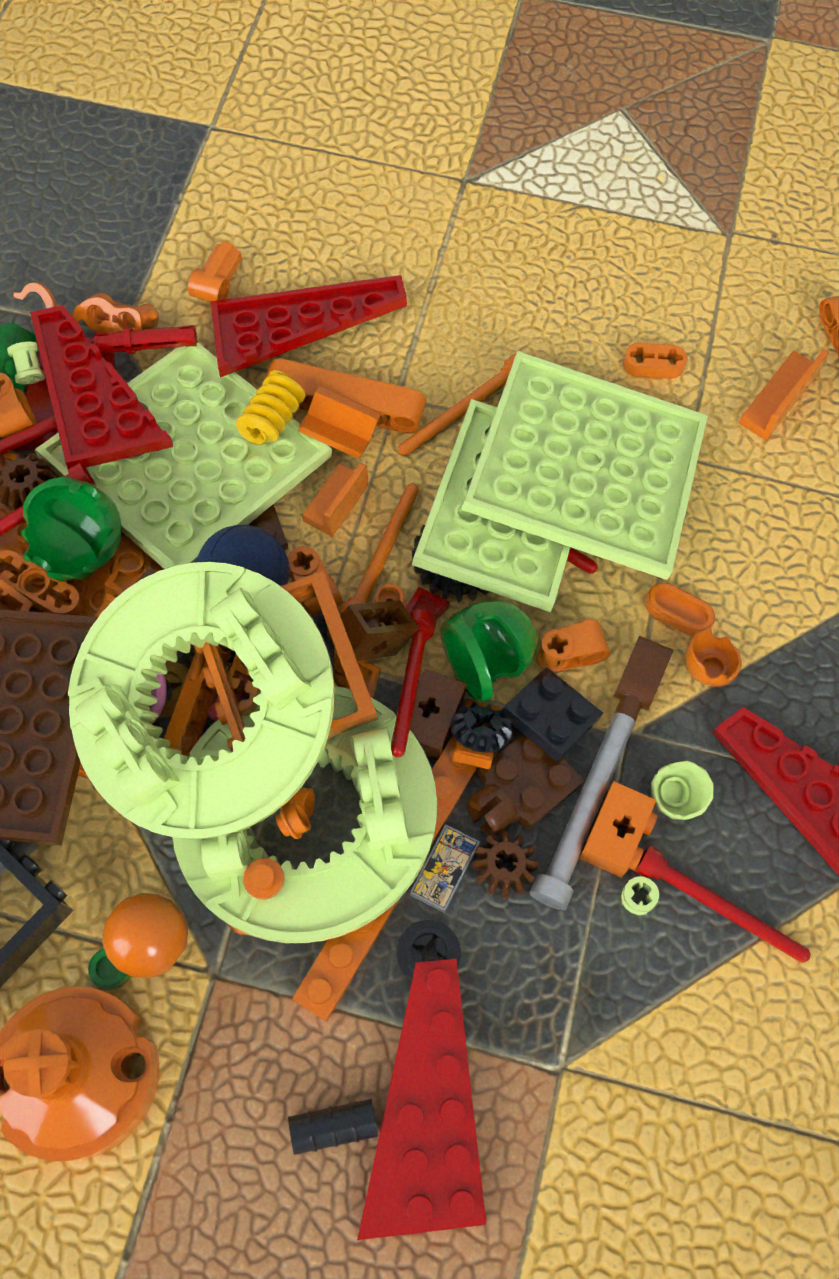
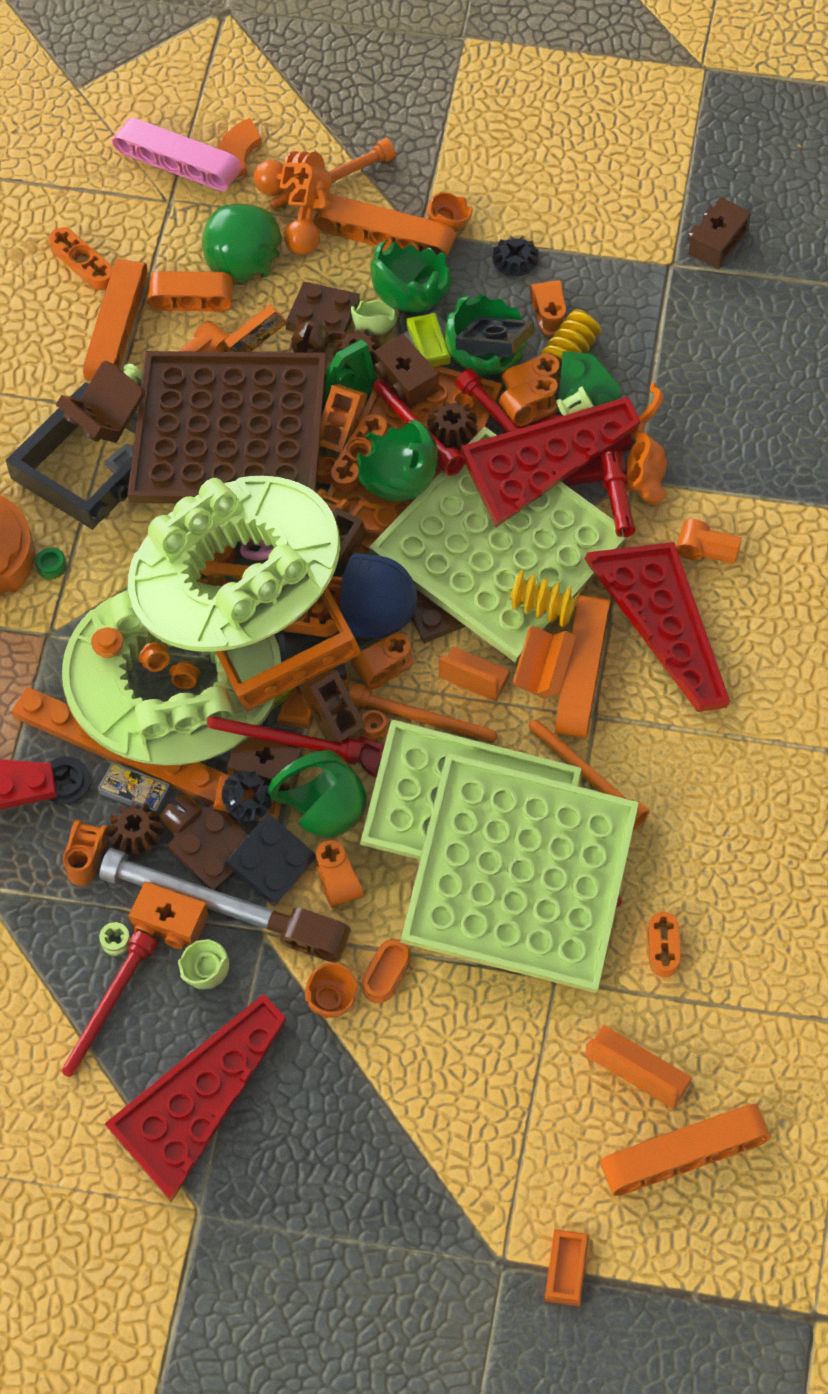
camera: 90 degrees right, 5 degrees down
(145, 935) = (68, 575): orange piece -> none
(524, 926) = (84, 846): none -> orange piece

